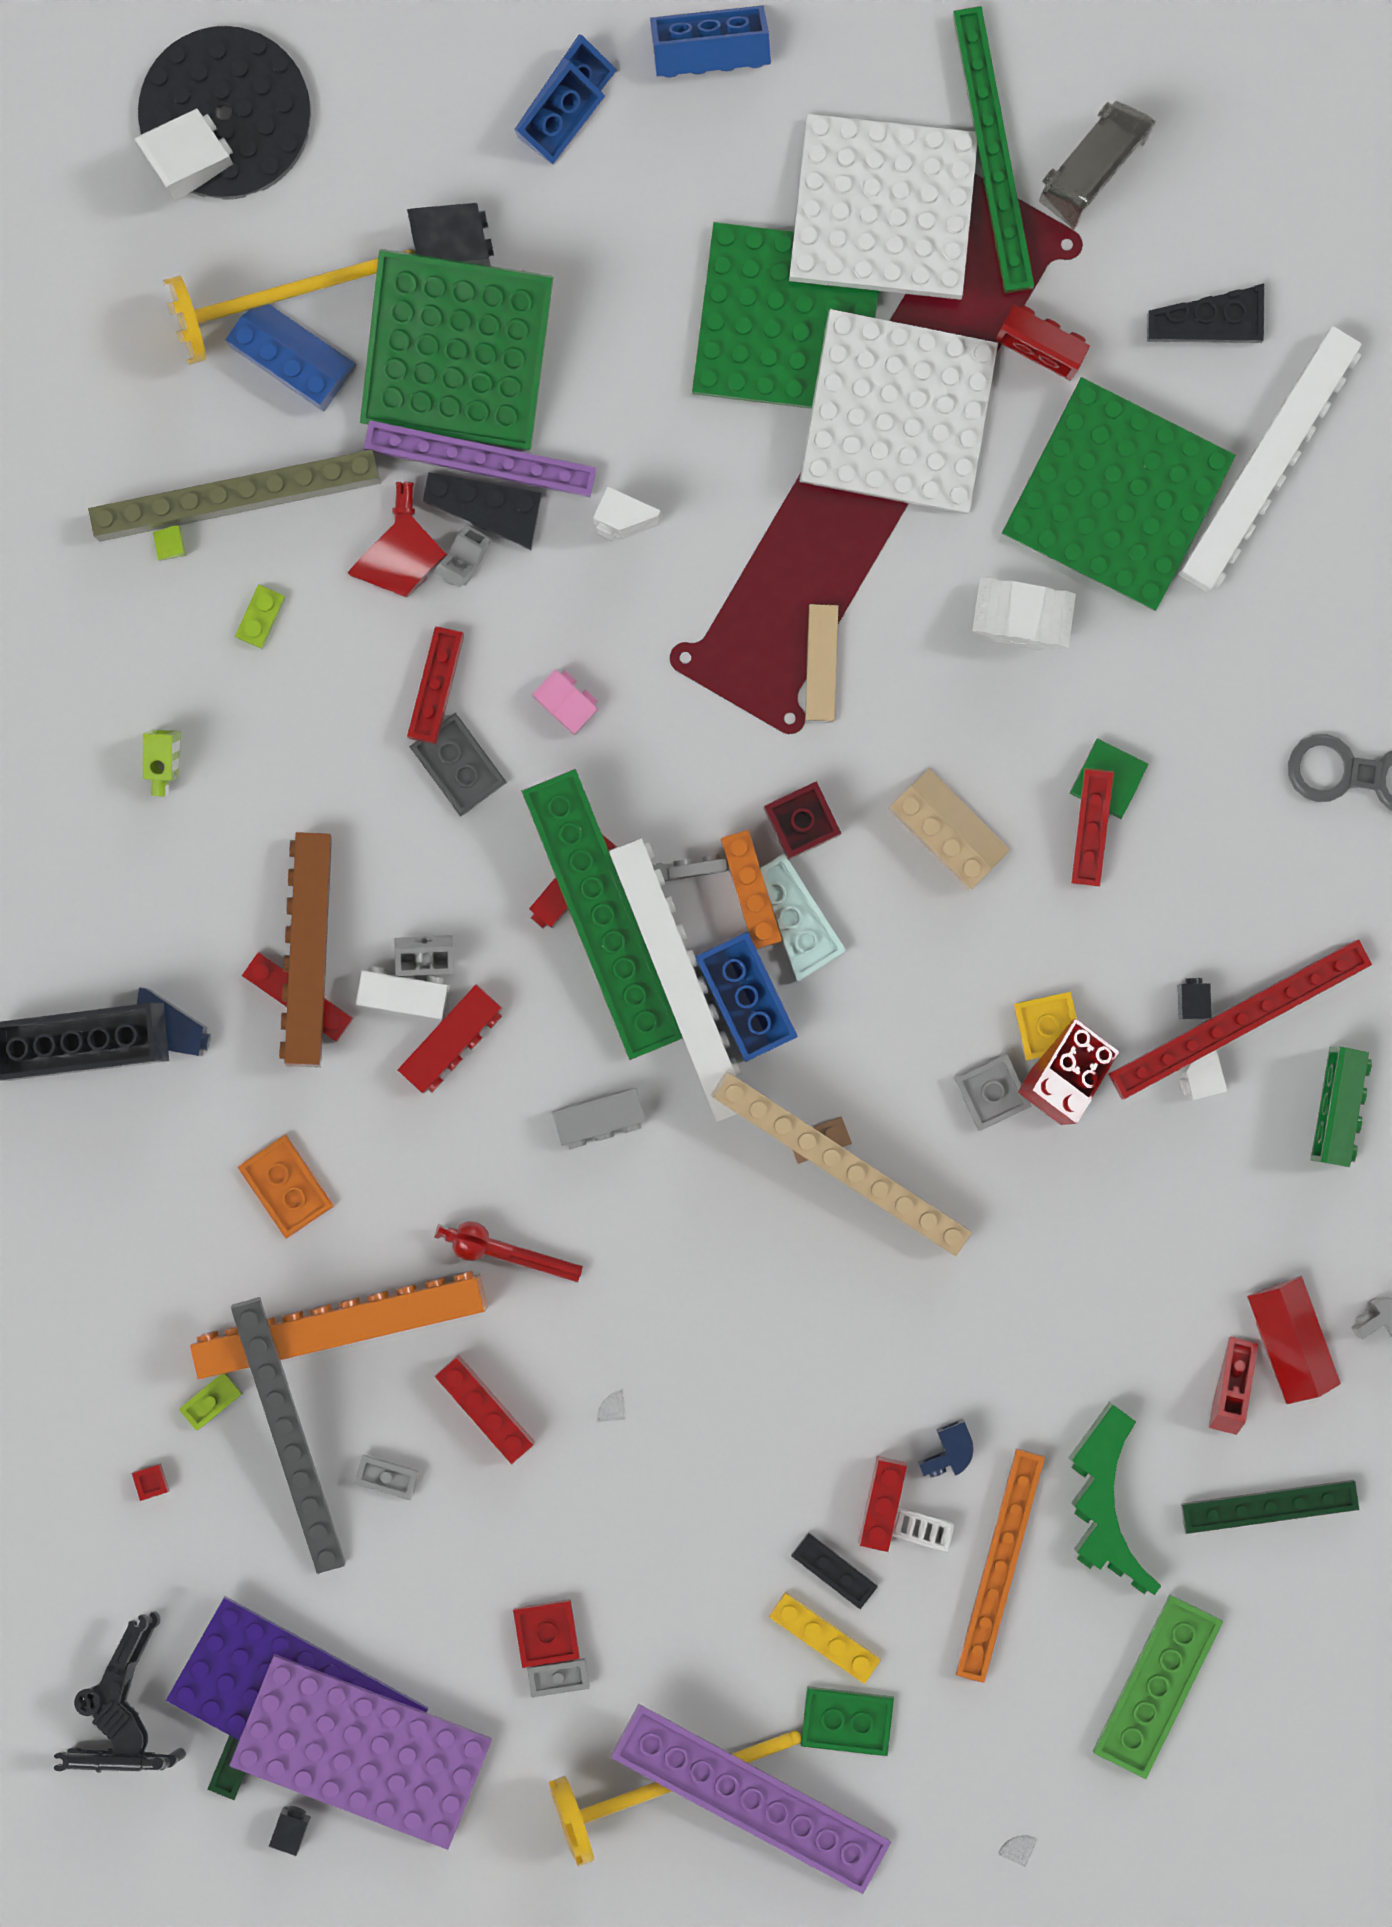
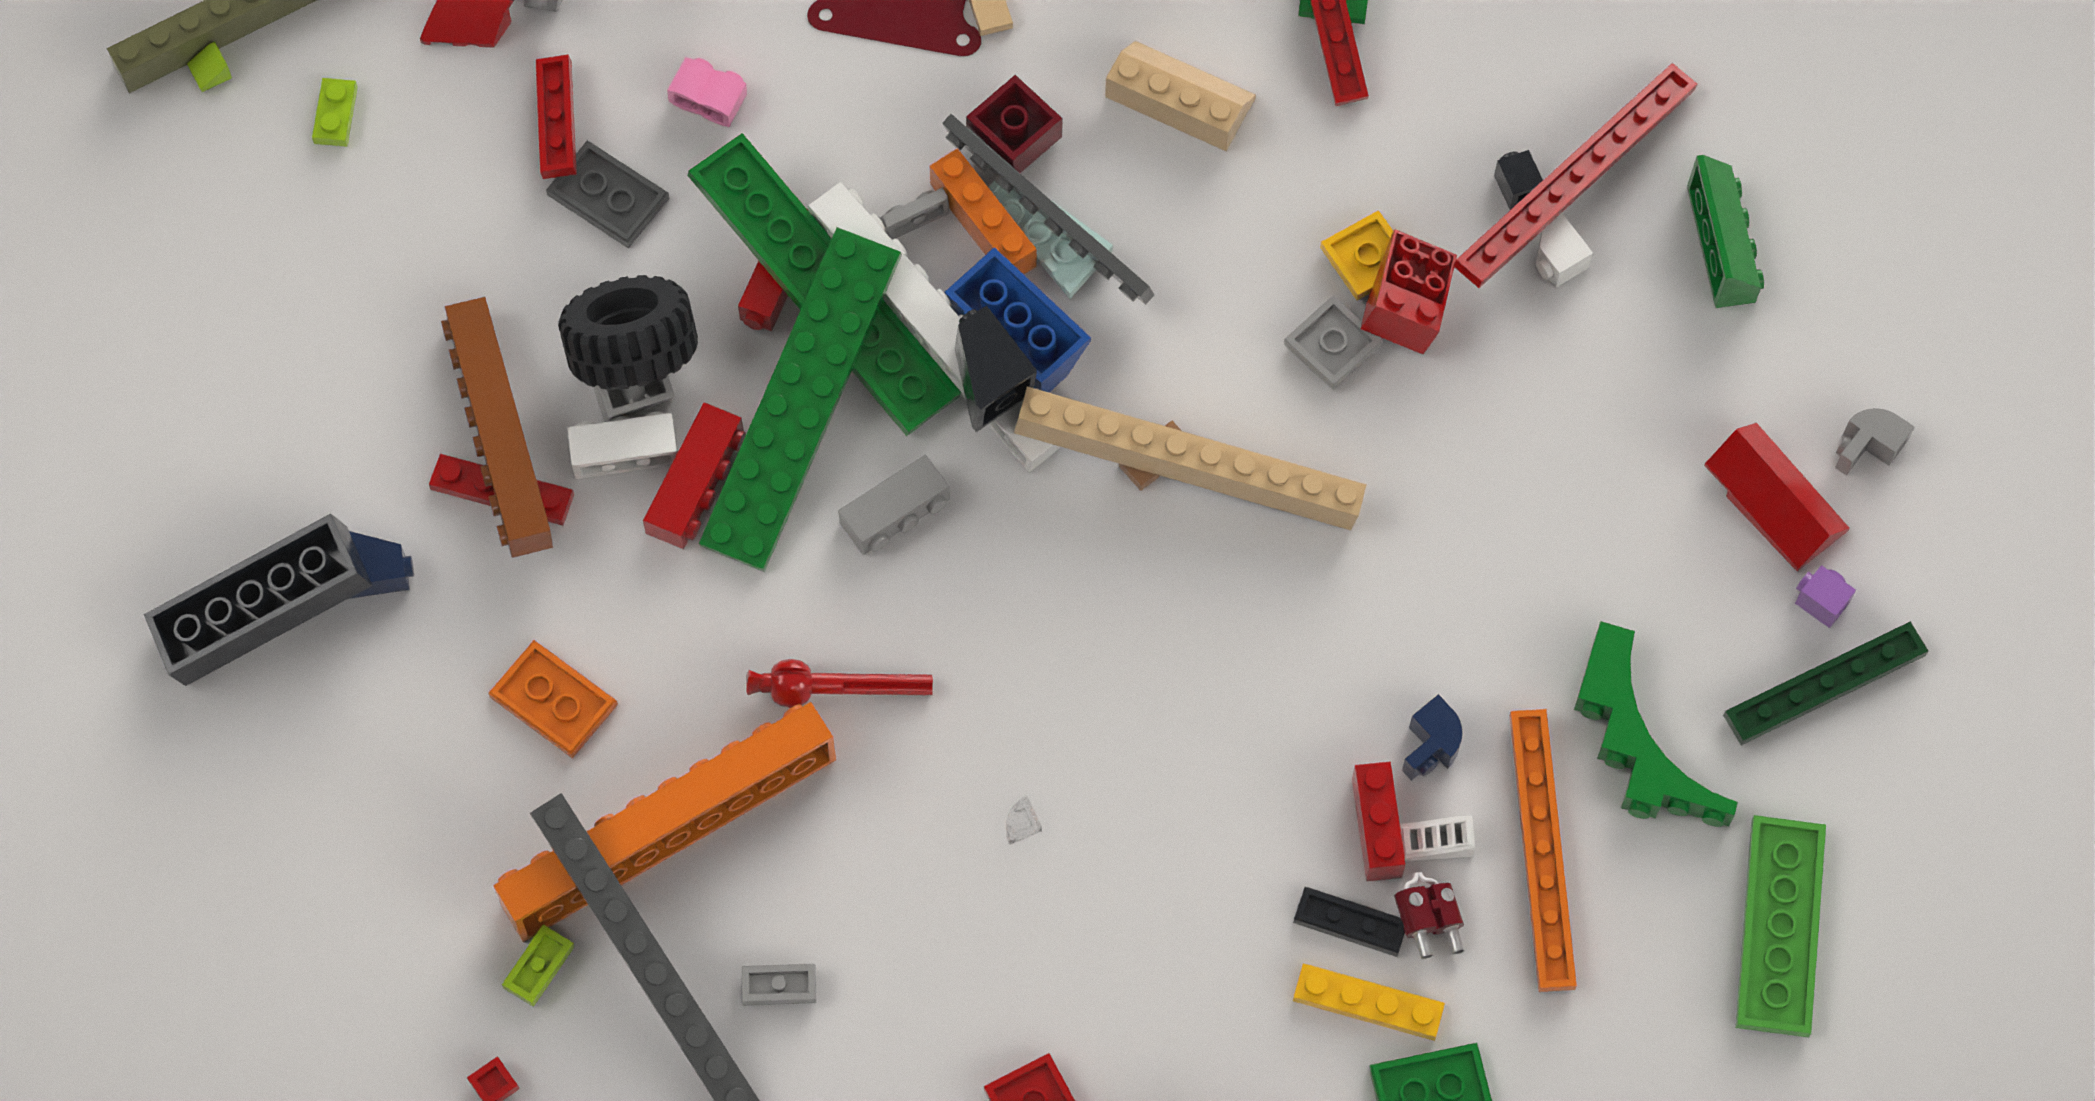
camera: 20 degrees left, 20 degrees down
(165, 747) = (265, 279): lime torso -> none
(431, 884) = (628, 332): none -> black tyre
(485, 1409) = (871, 865): red brick -> none
(553, 1008) = (800, 399): none -> green plate
(705, 1046) = (990, 367): none -> black slope
(807, 918) = (1056, 219): none -> dark grey plate
(894, 1587) = (1430, 911): none -> dark red piece
(1234, 1386) = (1730, 567): red slope -> none
(1298, 1435) = (1824, 595): none -> medium lavender brick

